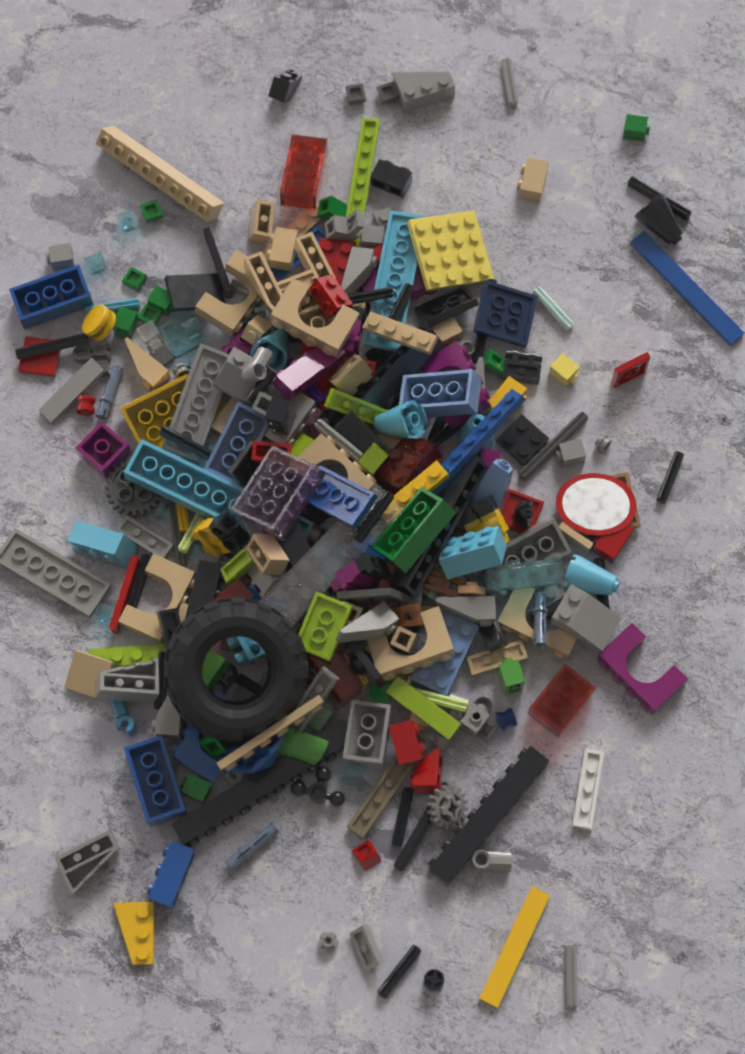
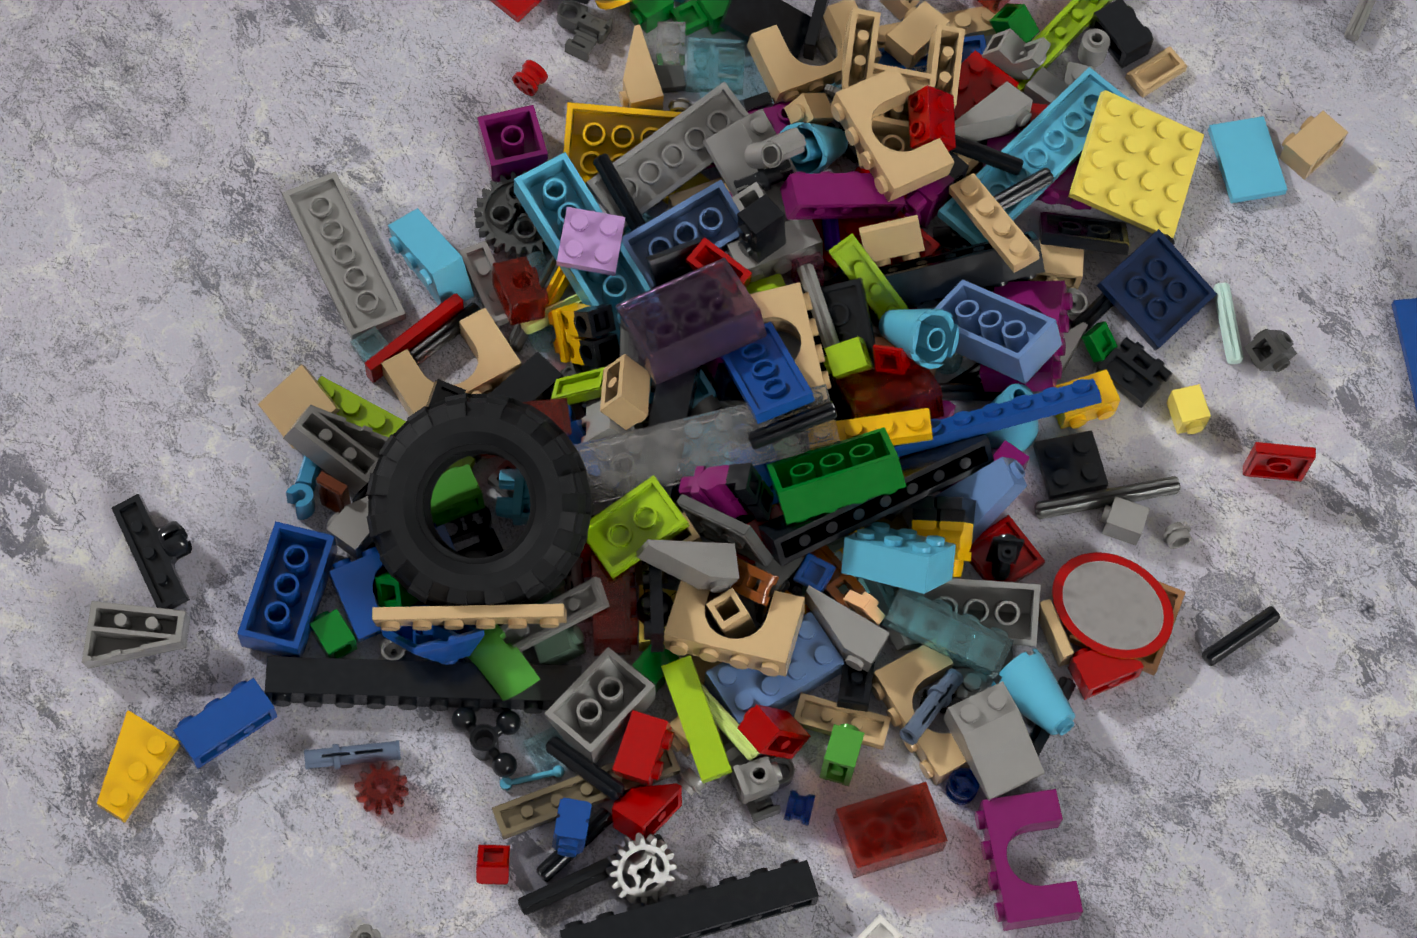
camera: 25 degrees right, 5 degrees down
(66, 806) = (154, 550): none -> black plate
(74, 387) = (532, 46): light grey tile -> none
(106, 400) = (561, 87): sand blue pin -> none
(144, 711) = (332, 492): none -> copper tile
(166, 532) = (519, 290): none -> clear red brick
(190, 480) = (590, 241): none -> lavender plate
(220, 341) = (756, 101): none -> black tile
(279, 848) = (373, 797): none -> clear red gear
(366, 783) = (507, 783): none -> medium azure hinge
(382, 196) = (1093, 47): none -> light grey brick
(382, 772) = (585, 768): none -> black axle
(397, 445) = (890, 359): none -> red slope
(398, 809) = (571, 827): none -> blue brick
(423, 188) = (1156, 71): none -> tan tile
(433, 588) = (814, 573): none -> blue tile
(467, 688) = (773, 731): none -> red brick
(503, 209) = (1247, 159): none -> medium azure tile
(585, 651) = (964, 780): none -> clear blue wheel
(586, 310) = (1271, 350): none -> dark grey brick

